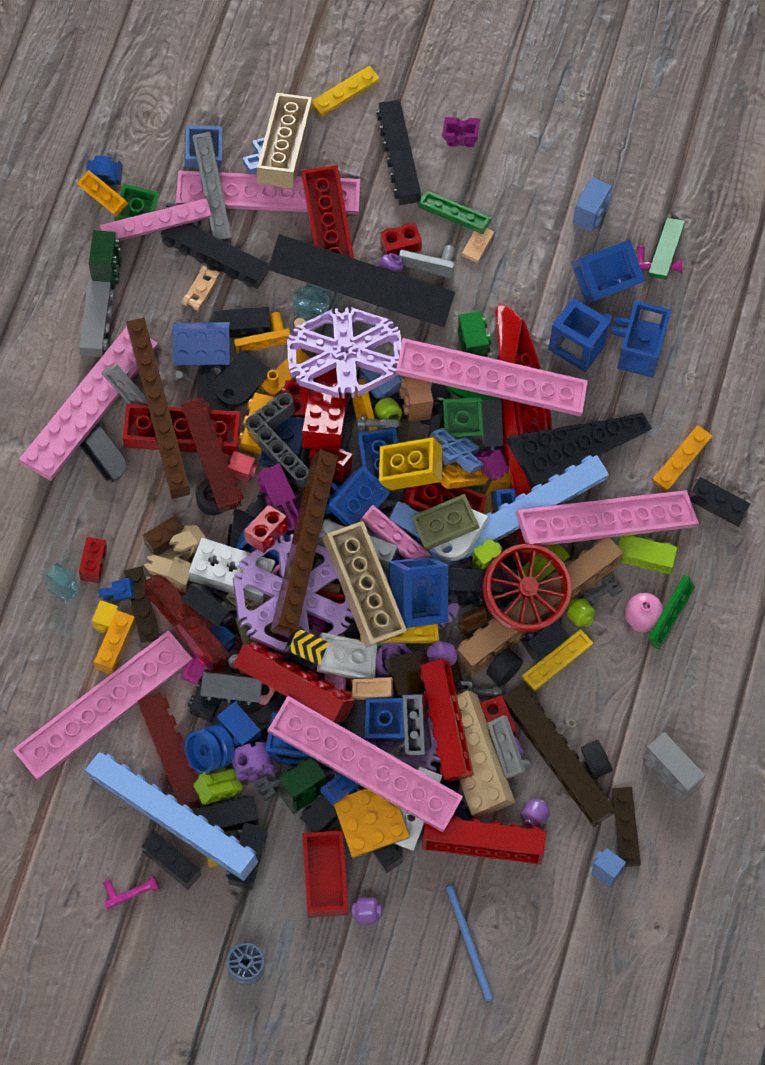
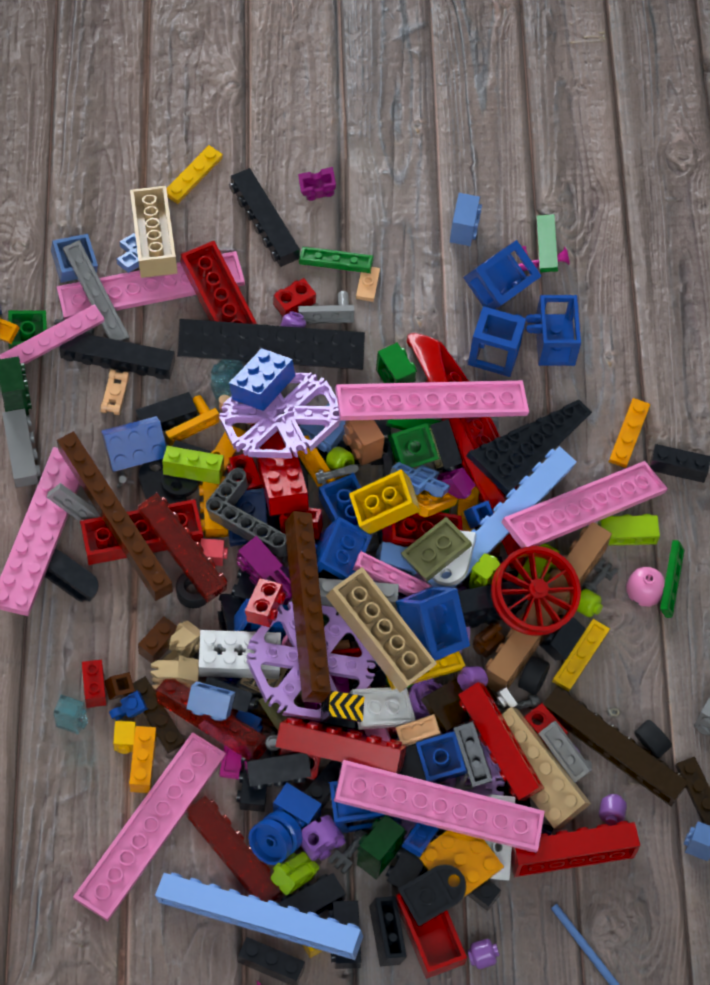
camera: 20 degrees left, 5 degrees down
(114, 568) = (119, 686): none -> reddish brown brick
(187, 606) = (210, 701): none -> medium blue brick
(248, 378) = (193, 465): none -> lime brick
(285, 864) = (387, 931): none -> black brick
(334, 842) = (431, 893): none -> black tile
(338, 313) = (262, 379): none -> blue brick
(467, 681) = (505, 698): none -> white plate

